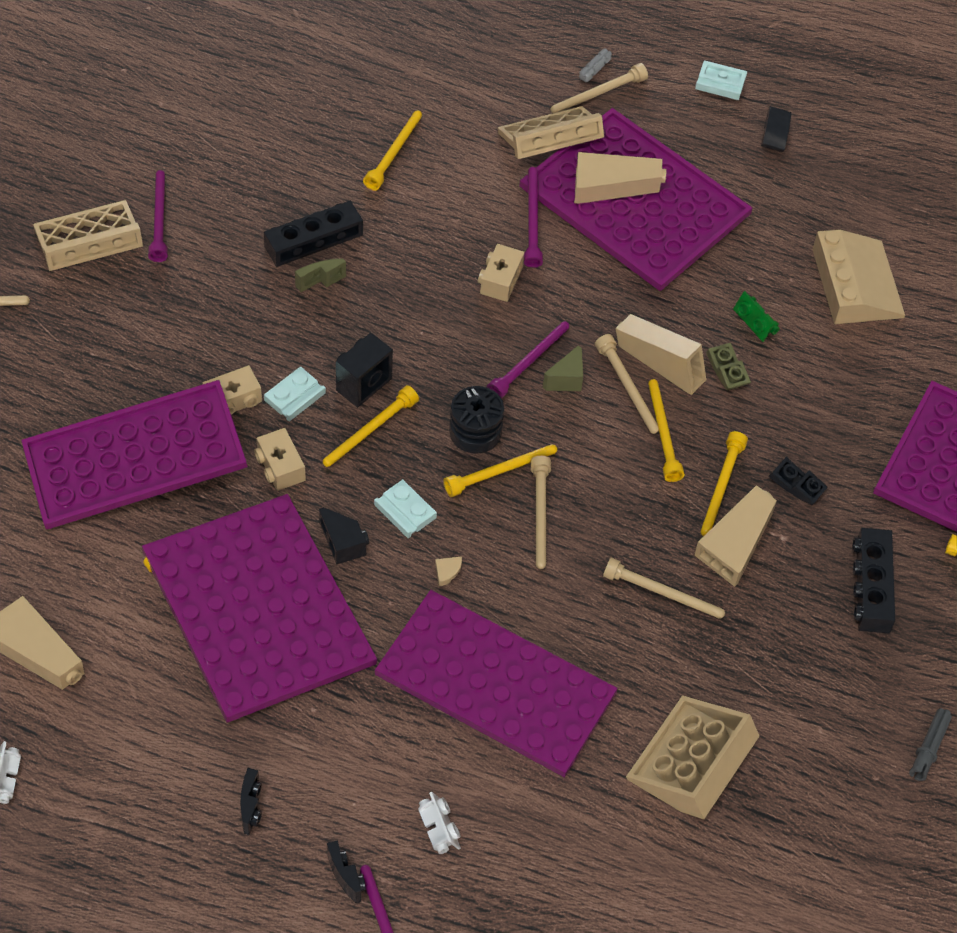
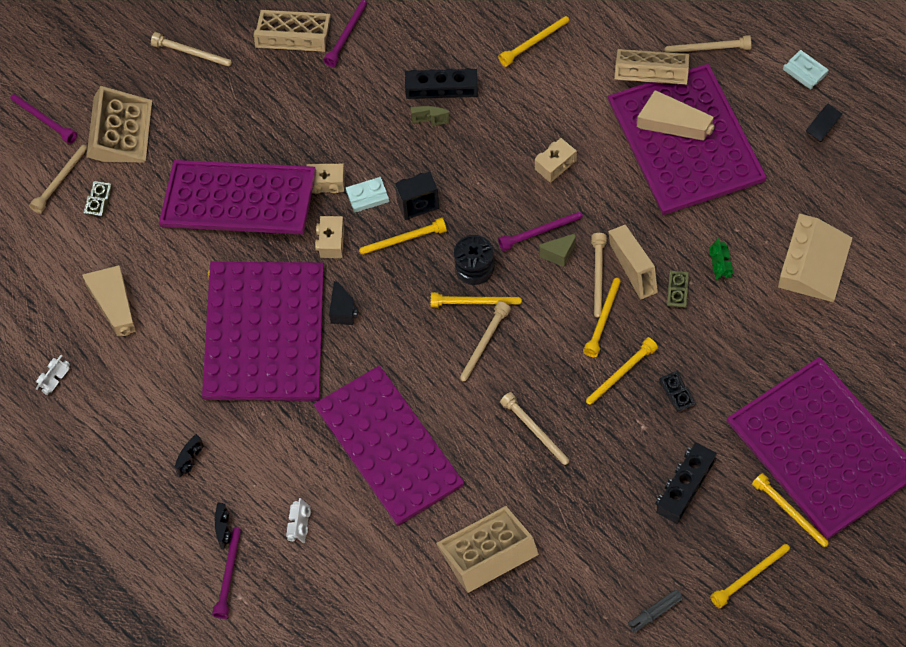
camera: 35 degrees right, 5 degrees up
(405, 508) = (395, 303): light aqua plate -> none
(447, 569) = (399, 356): tan tile -> none
(533, 256) = (585, 155): magenta piece -> none
(595, 65) = (718, 25): light grey axle -> none
(734, 538) = (609, 411): tan slope -> none

